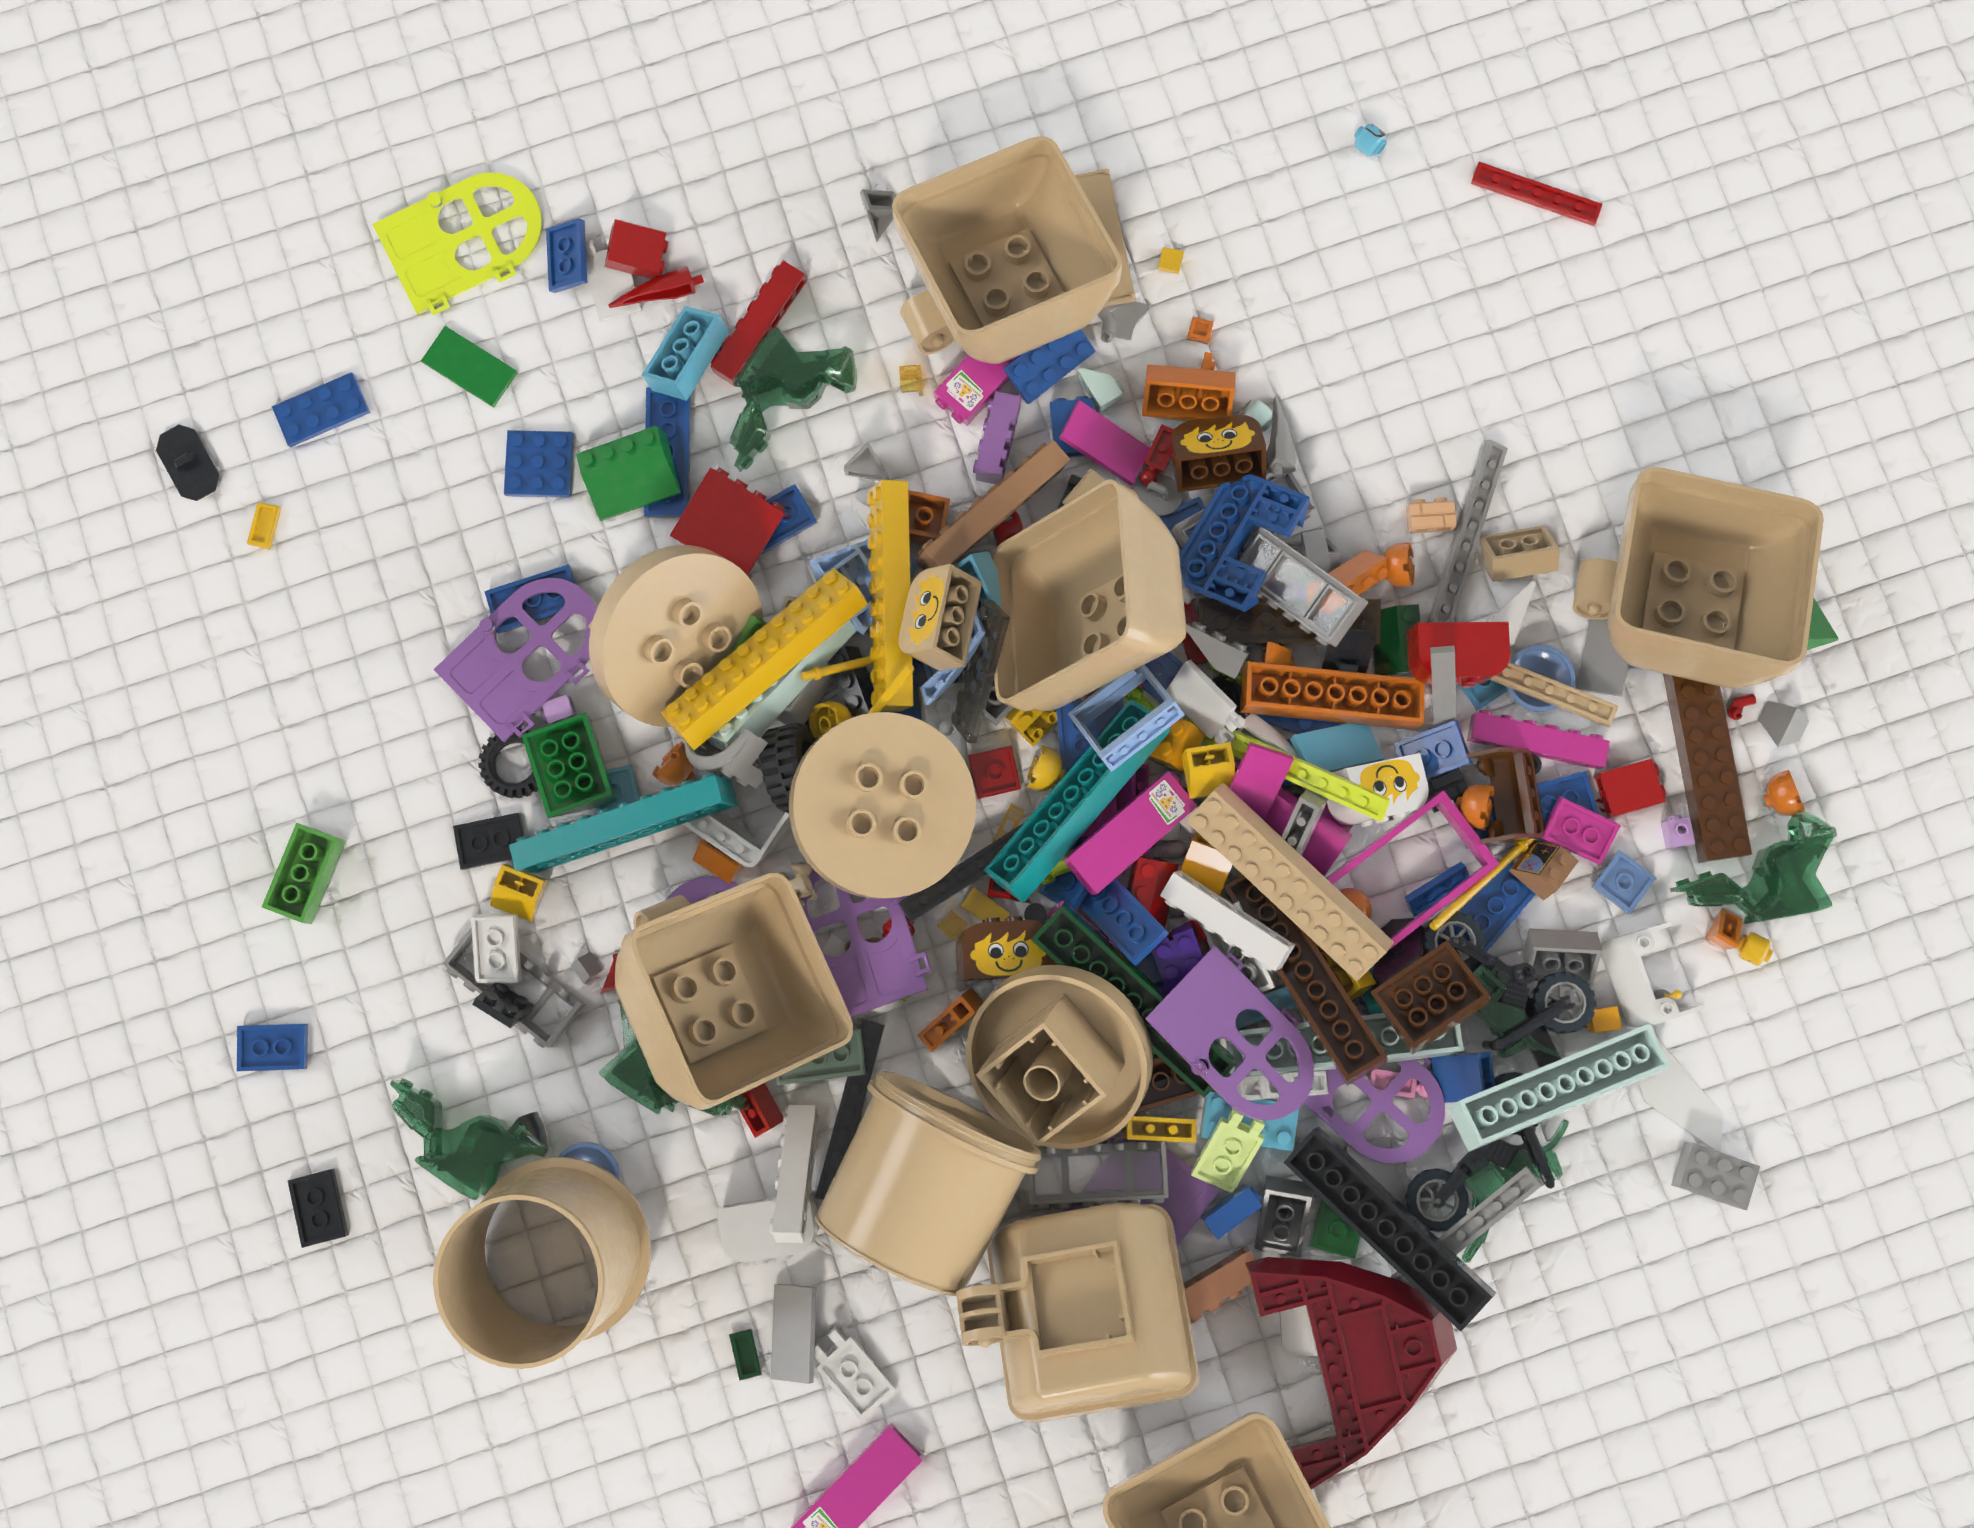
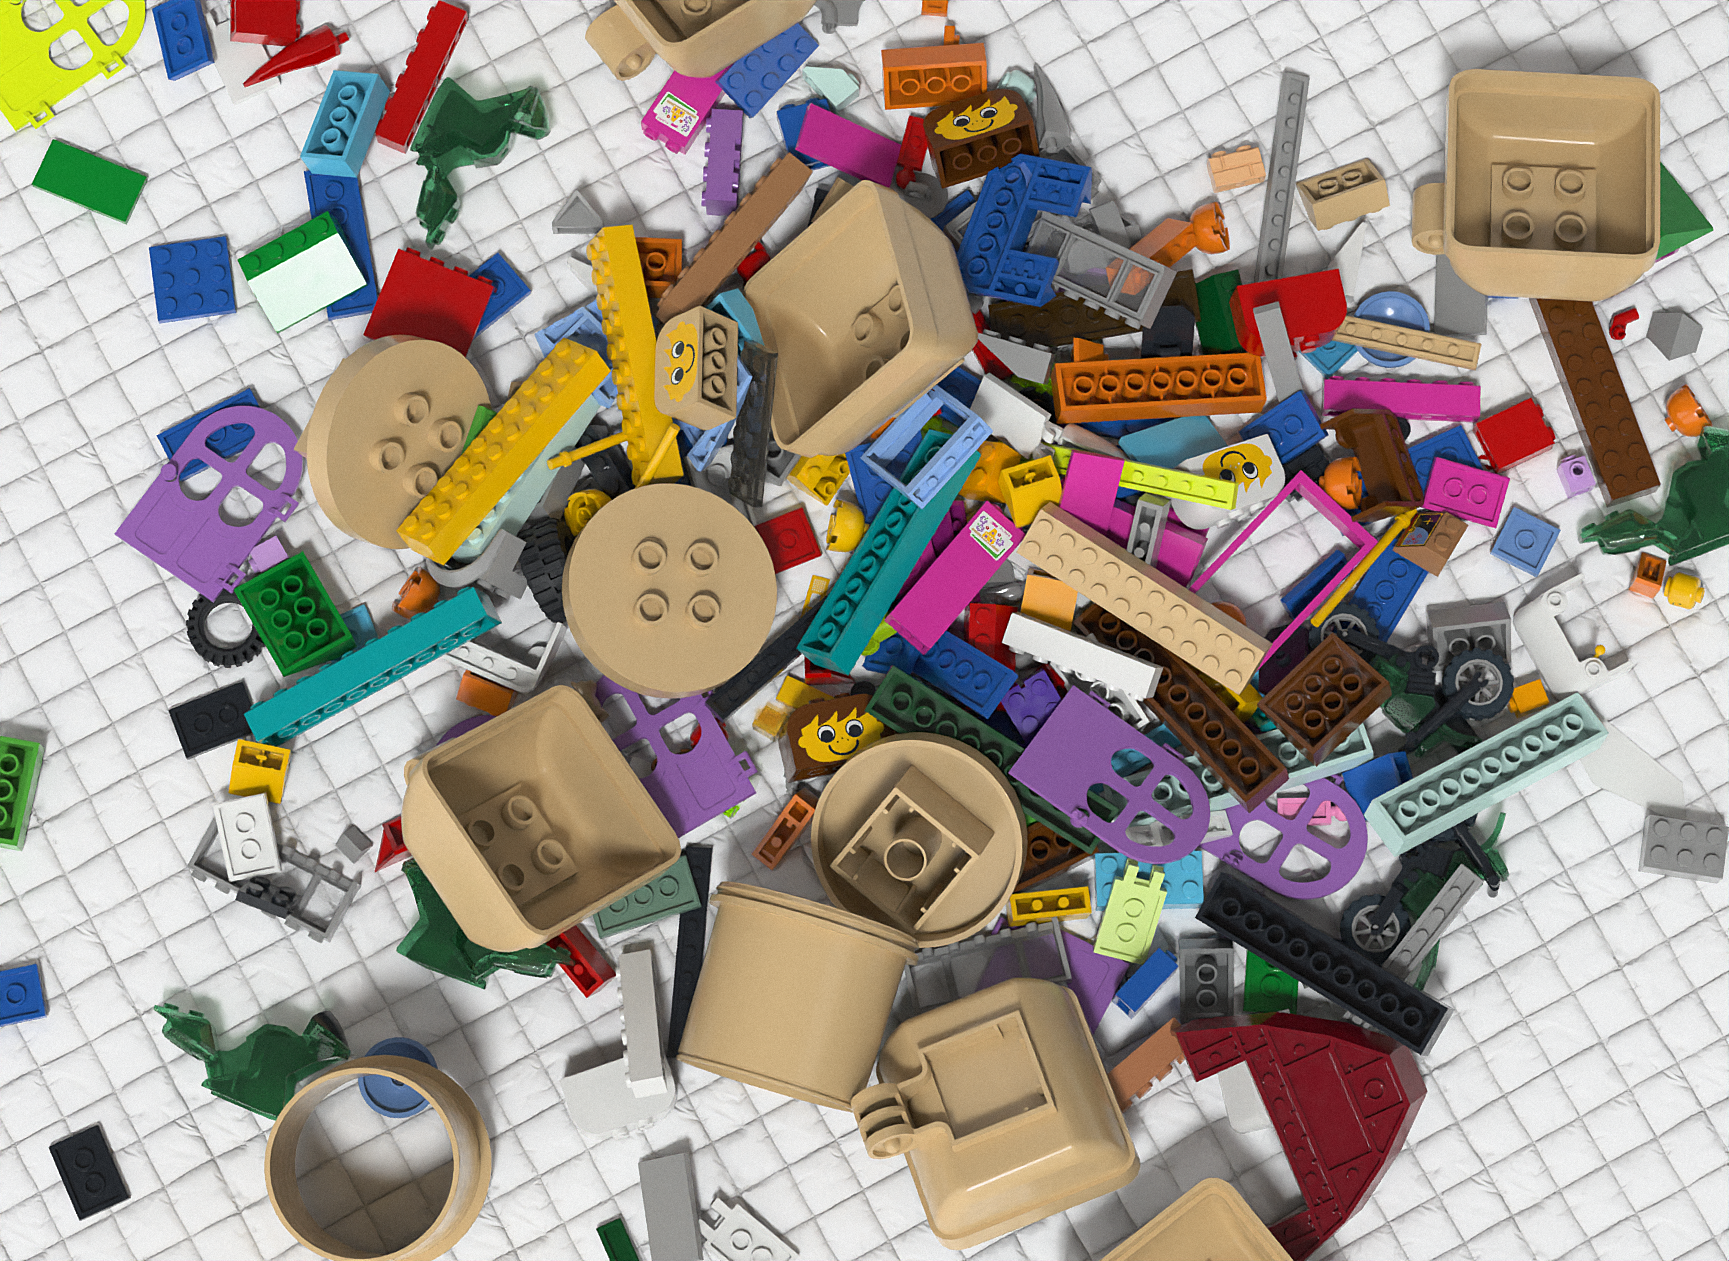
camera: 20 degrees left, 5 degrees down
(911, 379) = (611, 111): clear yellow panel -> none

